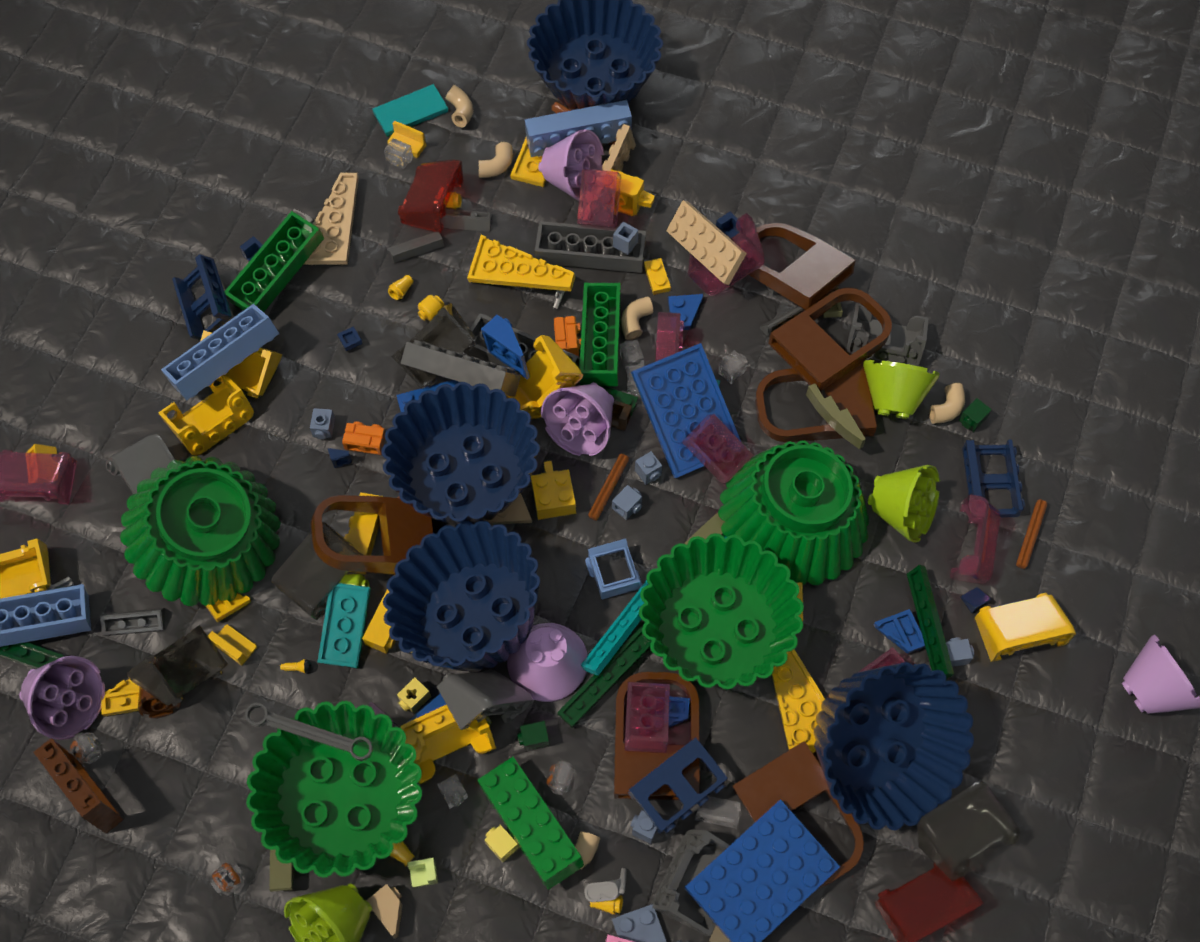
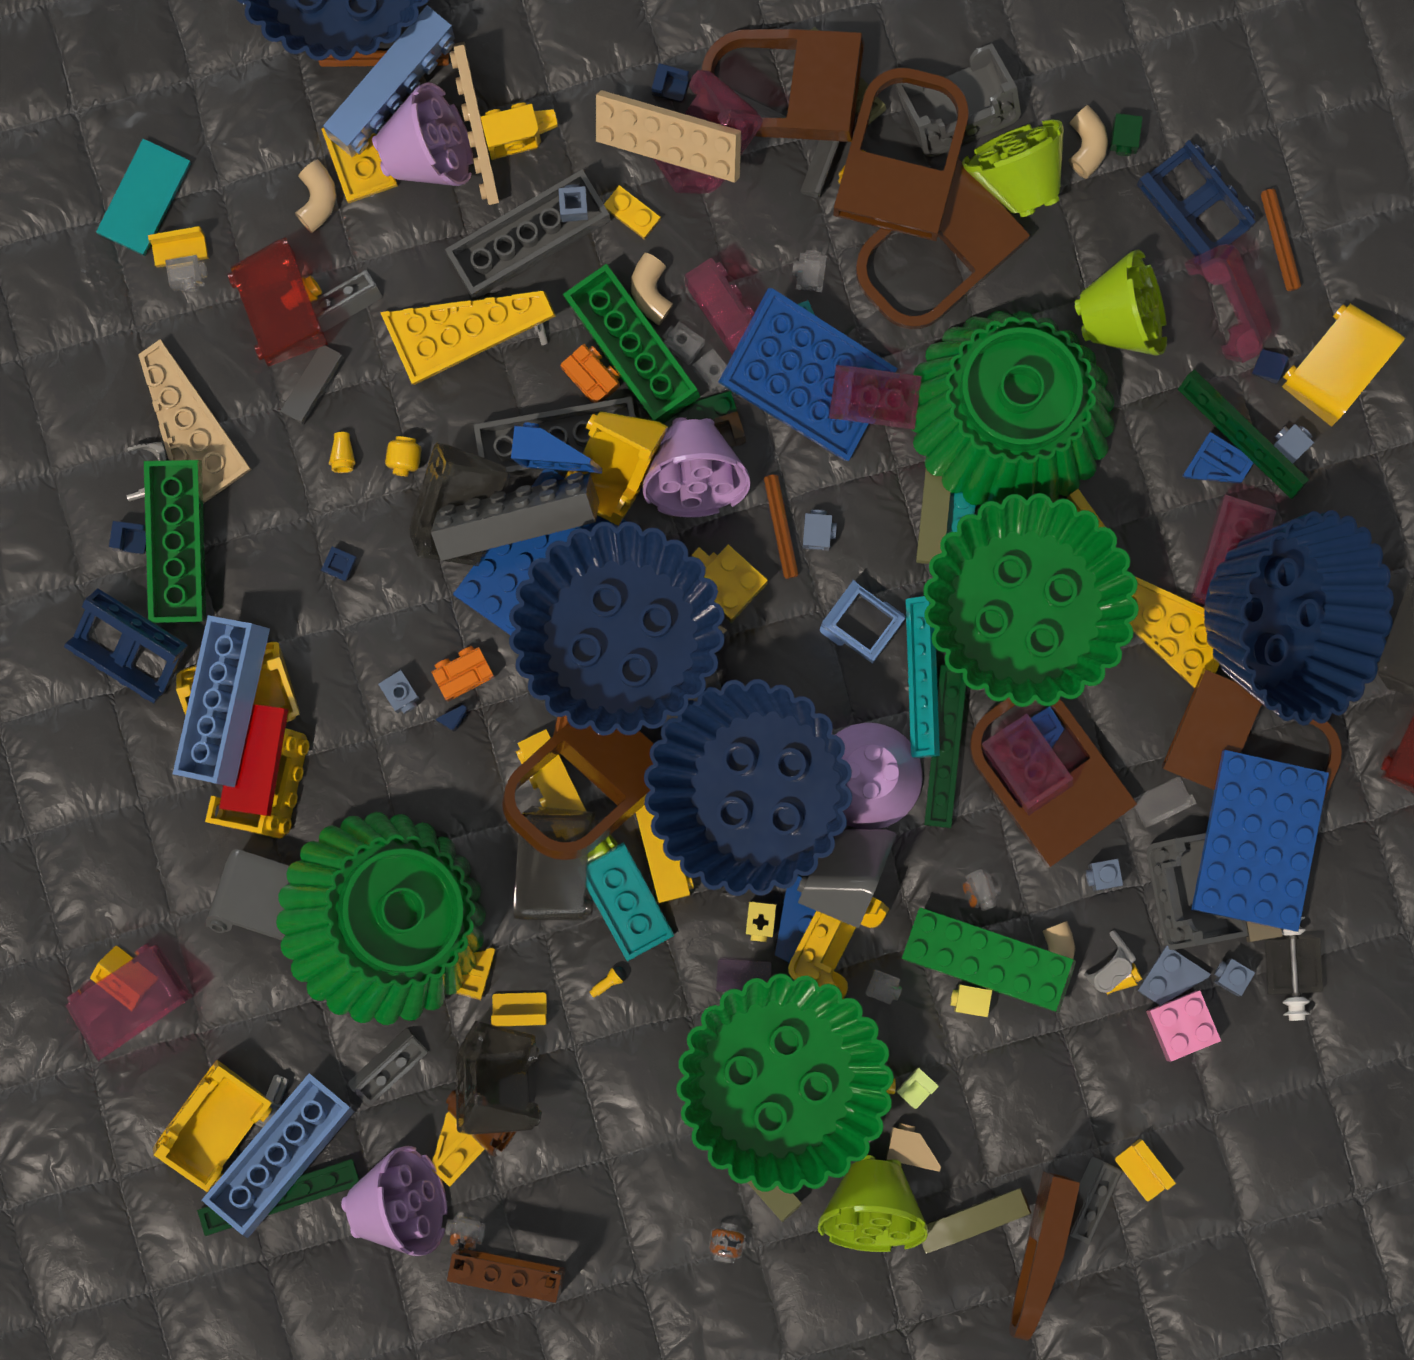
camera: 35 degrees left, 20 degrees up
(211, 397) = (258, 764): none -> red tile
(308, 731) = (718, 1051): dark grey piece -> none
(463, 106) = (210, 145): tan cylinder -> none
(533, 736) = (919, 868): dark green brick -> none
(599, 198) = (499, 171): clear pink brick -> none
(648, 468) = (811, 473): sand blue brick -> none
(671, 774) = (1096, 807): dark blue window -> none
(687, 307) = (697, 235): blue wing -> none
(839, 420) = (988, 261): olive slope -> none

